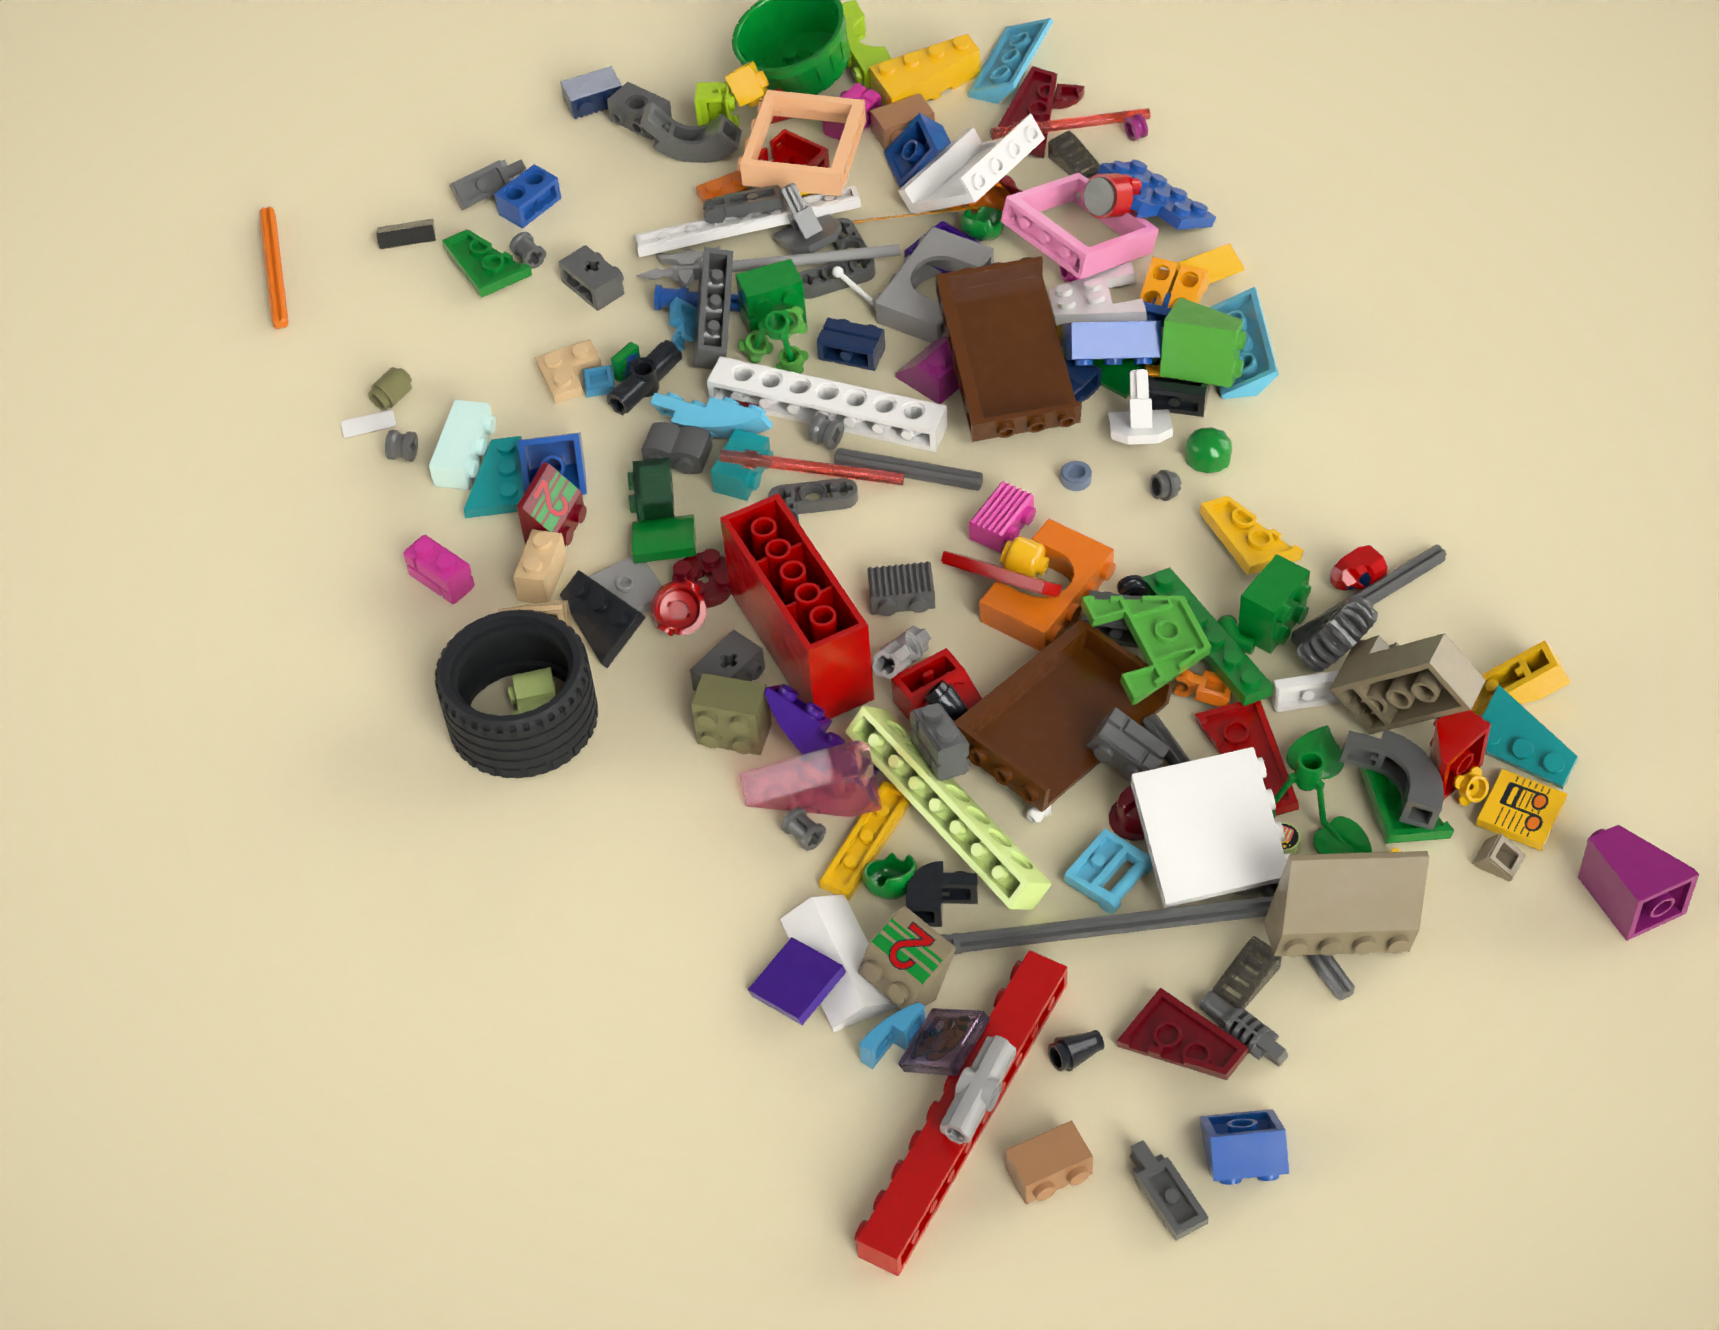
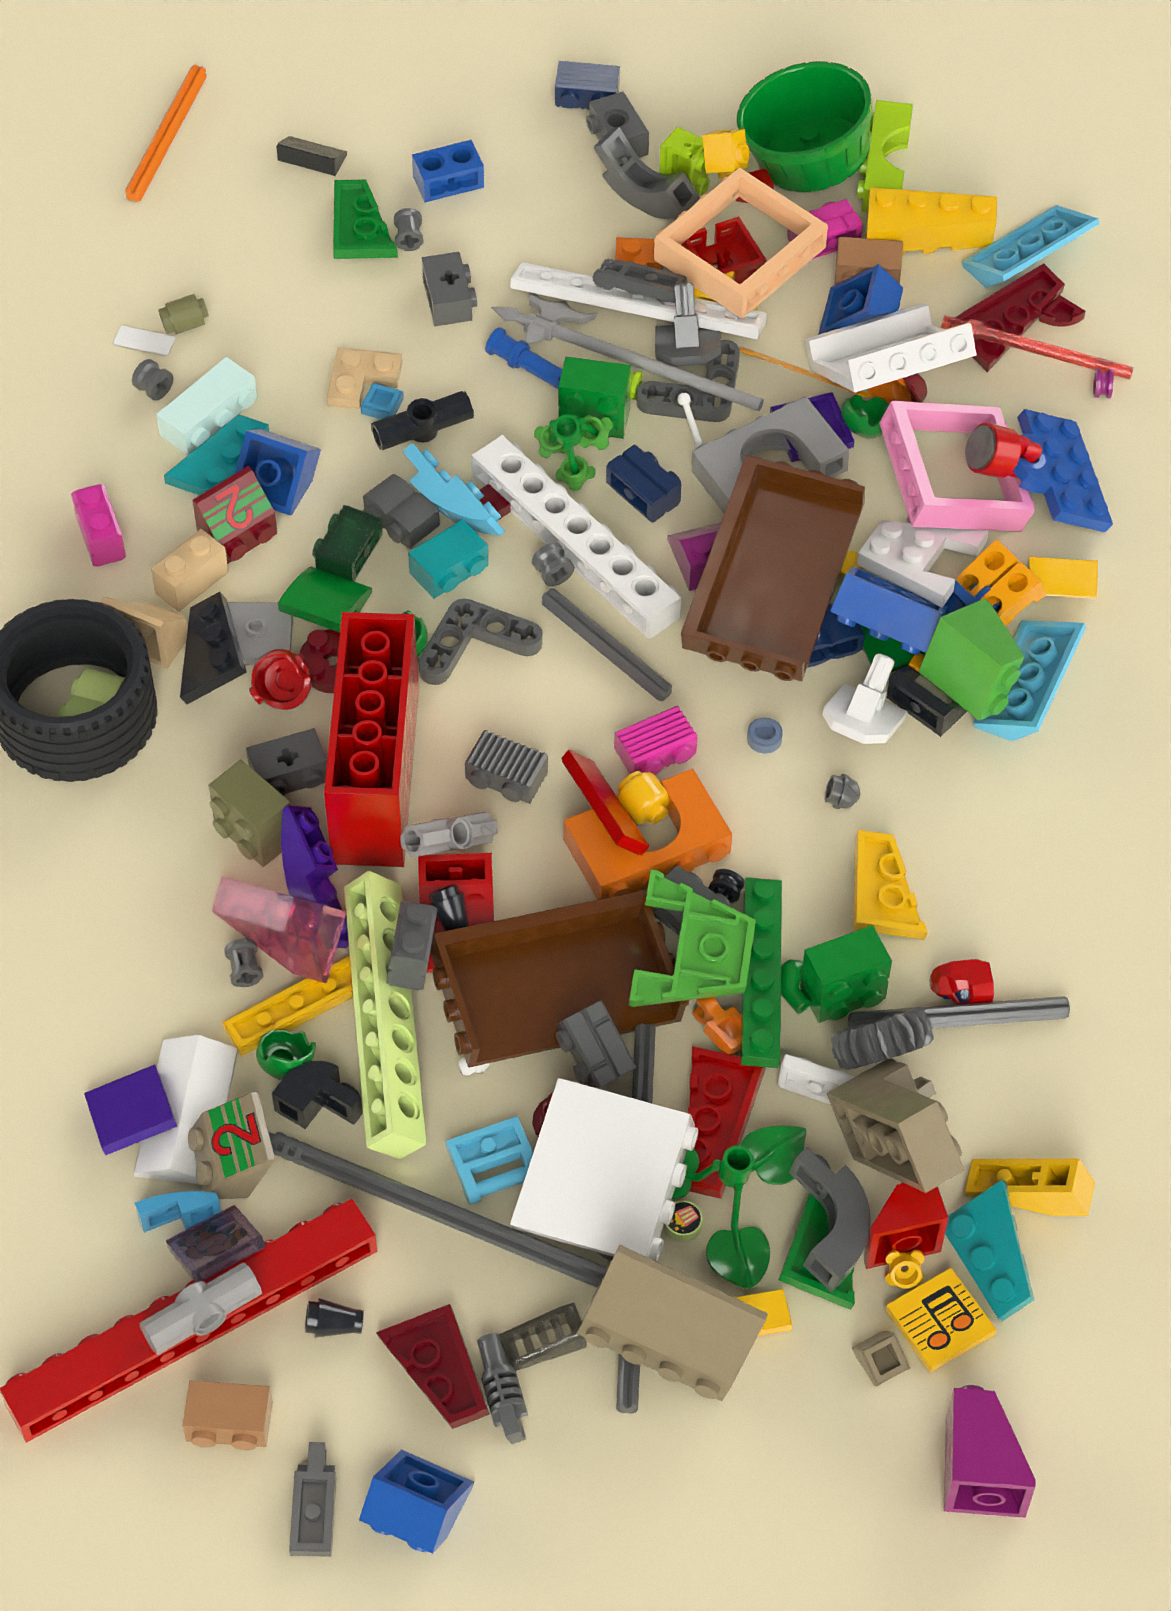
camera: 25 degrees right, 5 degrees up
(485, 182) = (418, 136): dark grey hinge -> none
(622, 360) = (415, 390): green tile -> none
(683, 318) = (504, 377): dark azure plate -> none
(712, 307) = (529, 379): dark grey brick -> none
(751, 459) = (451, 560): clear red bar -> none
(1067, 144) = (1013, 369): clear smoke slope -> none
(1208, 450) = (914, 776): green hair -> none

